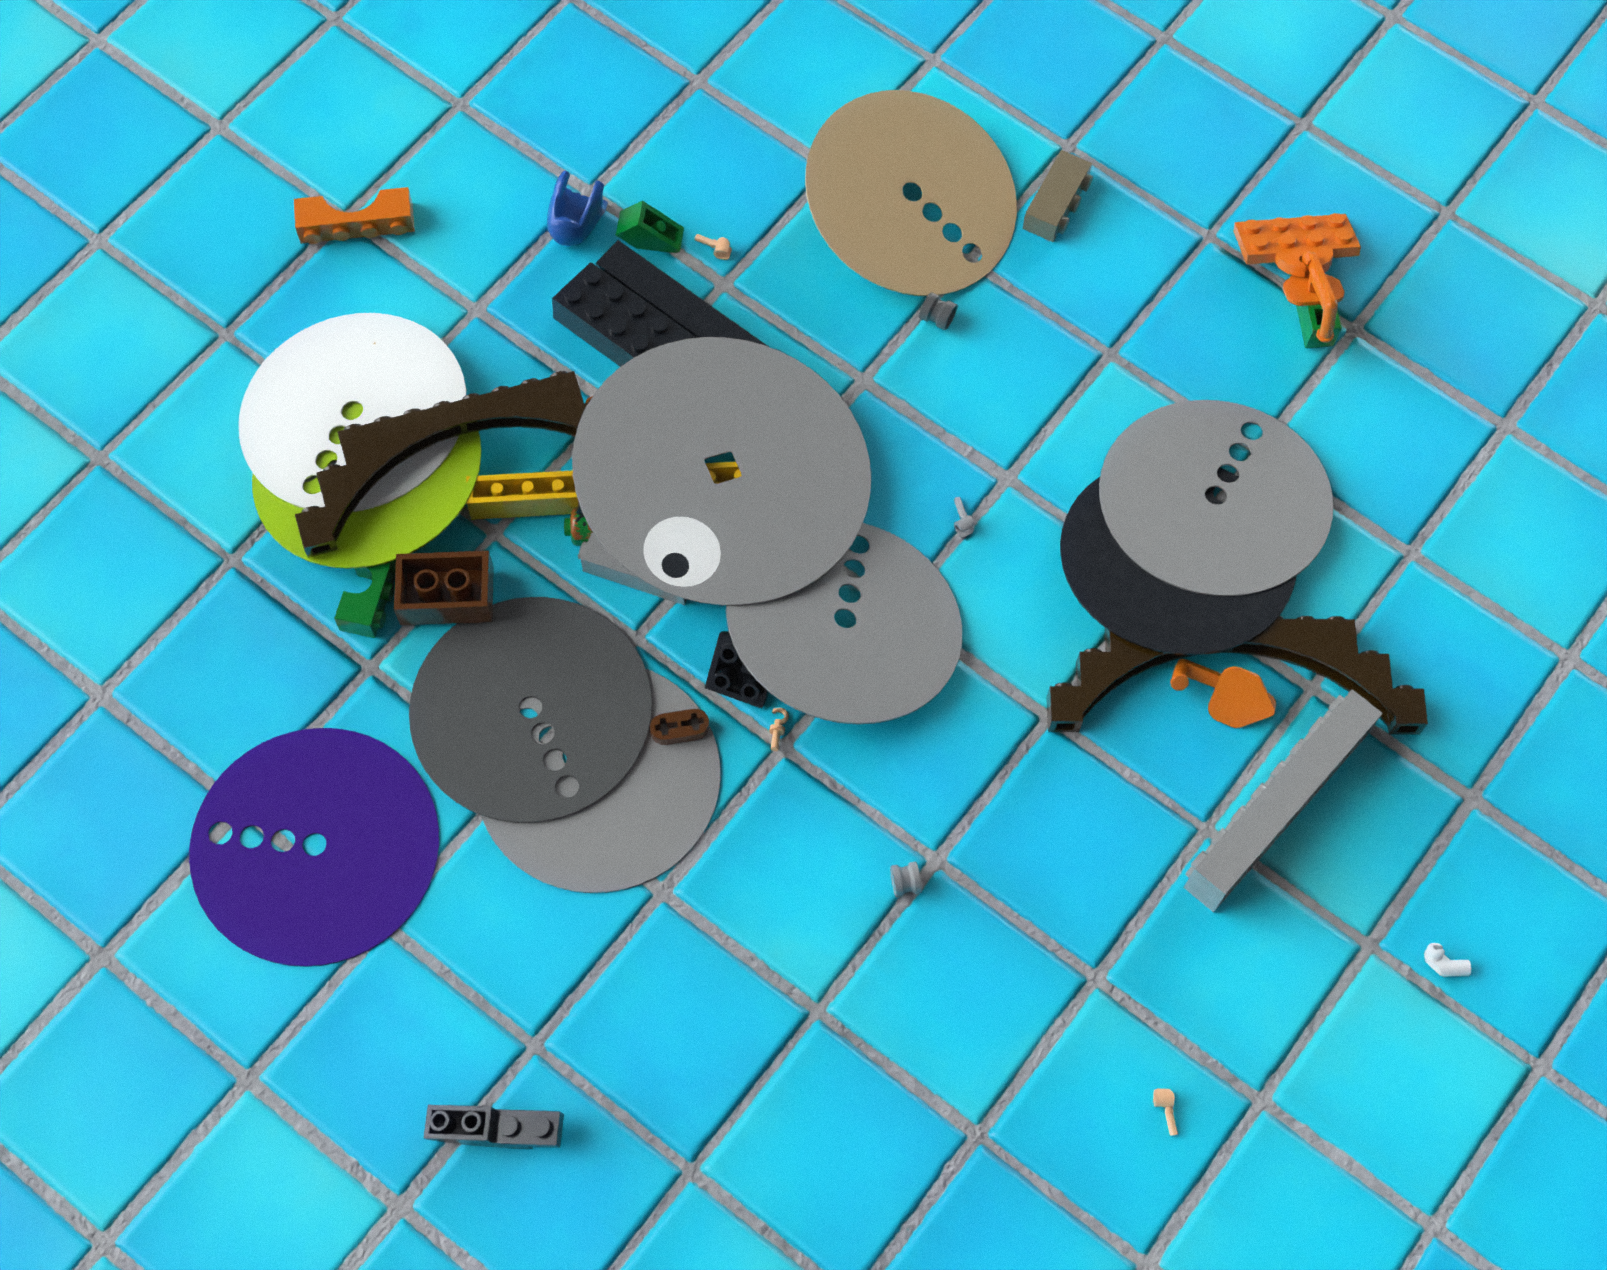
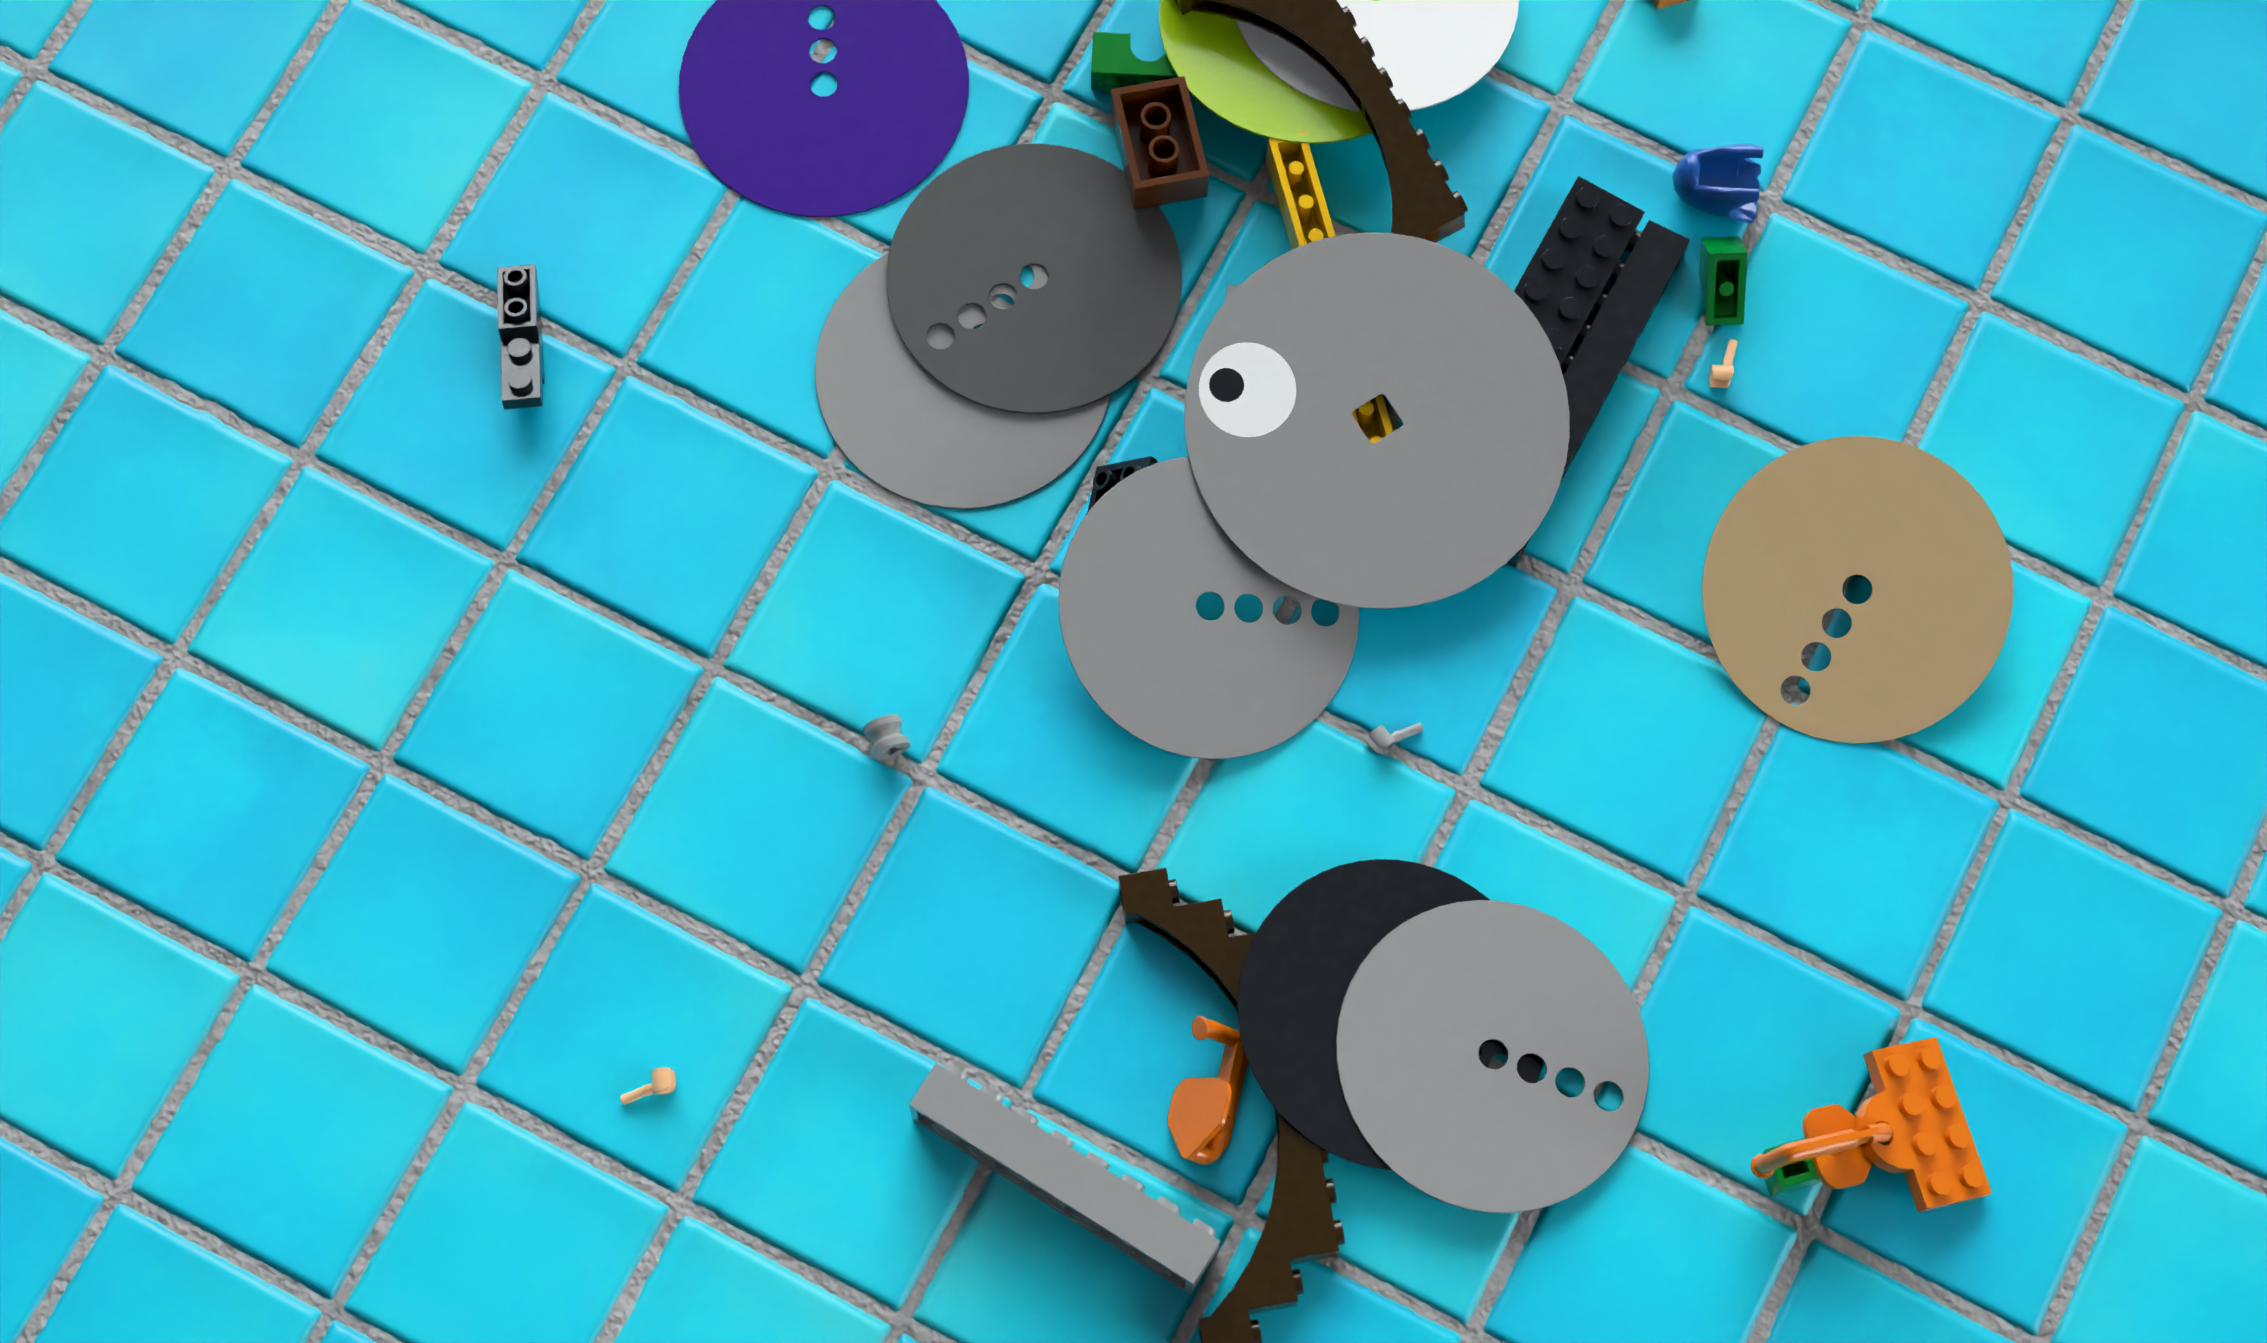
camera: 80 degrees right, 5 degrees up
(679, 719) = (1030, 449): reddish brown beam -> none
(777, 729) = (1055, 559): light nougat hand -> none
(938, 311) = (1690, 657): dark grey wheel -> none
(1058, 196) = (1913, 789): dark tan brick -> none

